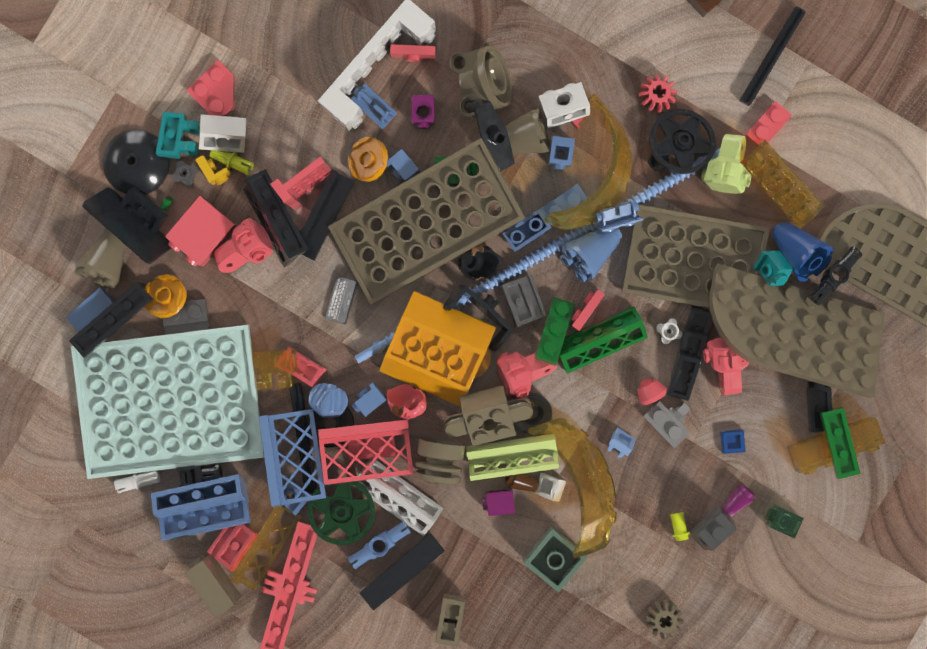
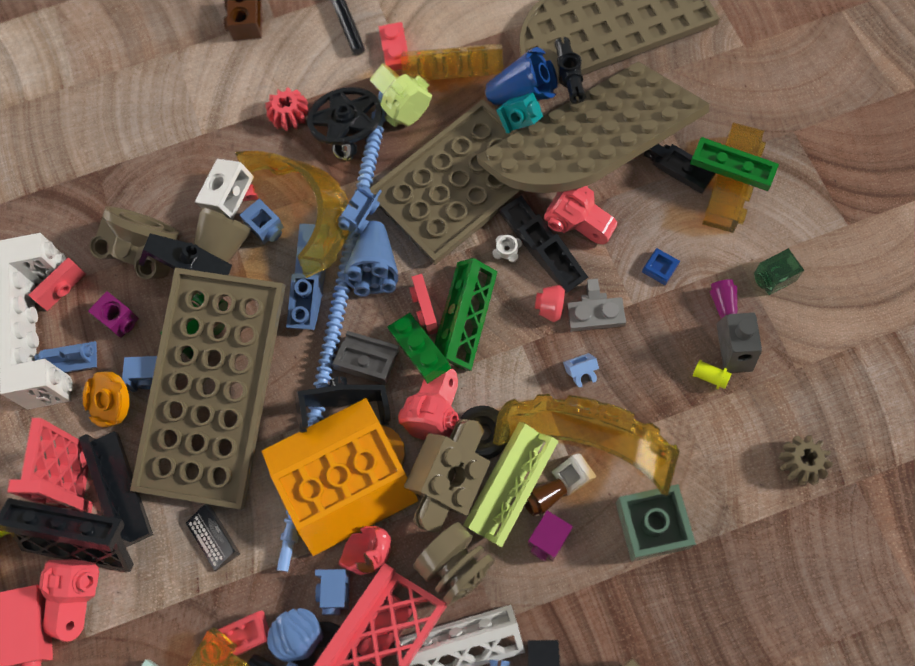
camera: 45 degrees left, 20 degrees down
(479, 262) = (292, 368): black hair -> none

